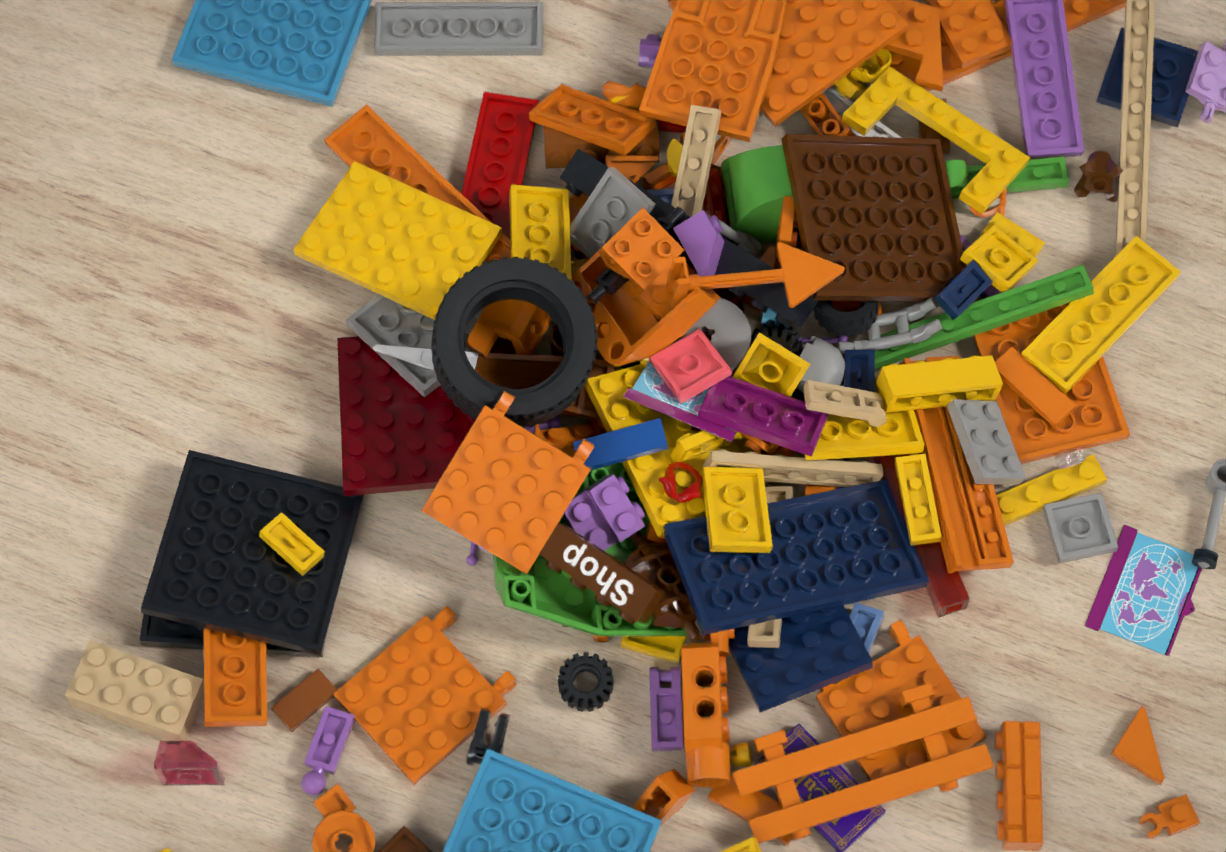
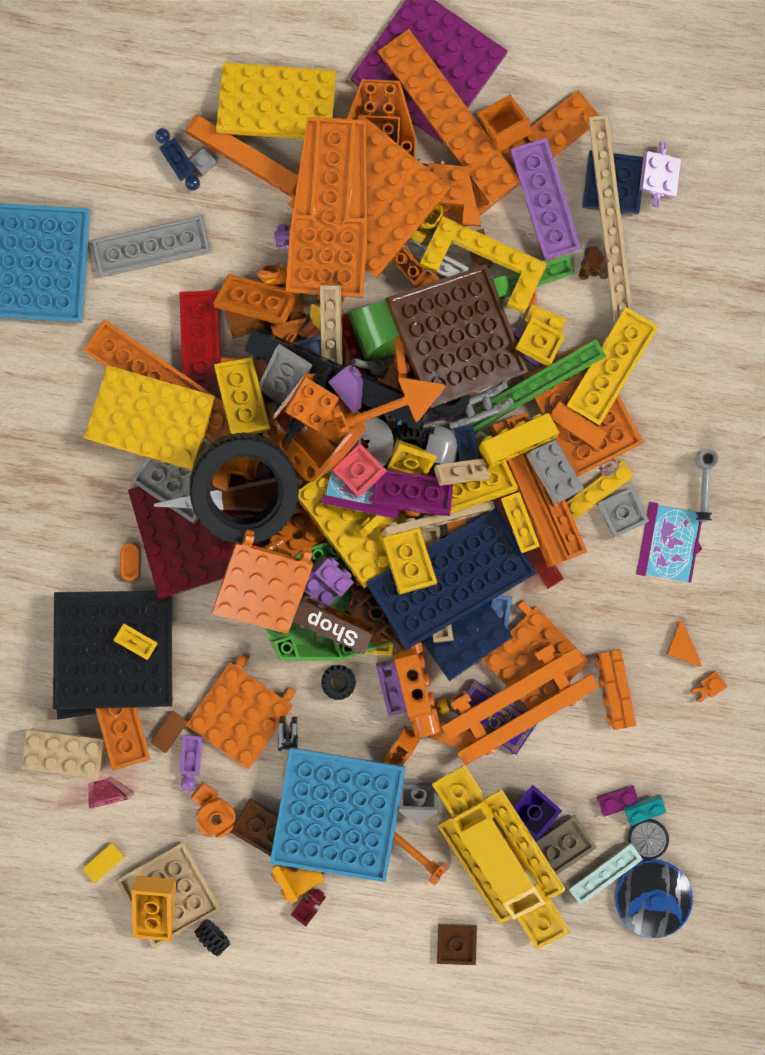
camera: 15 degrees left, 20 degrees up
(312, 443) = (130, 562): none -> orange tile
(625, 444) = (328, 534): blue tile -> none
(669, 483) = (363, 552): red piece -> none
(963, 290) = (521, 372): dark blue plate -> none

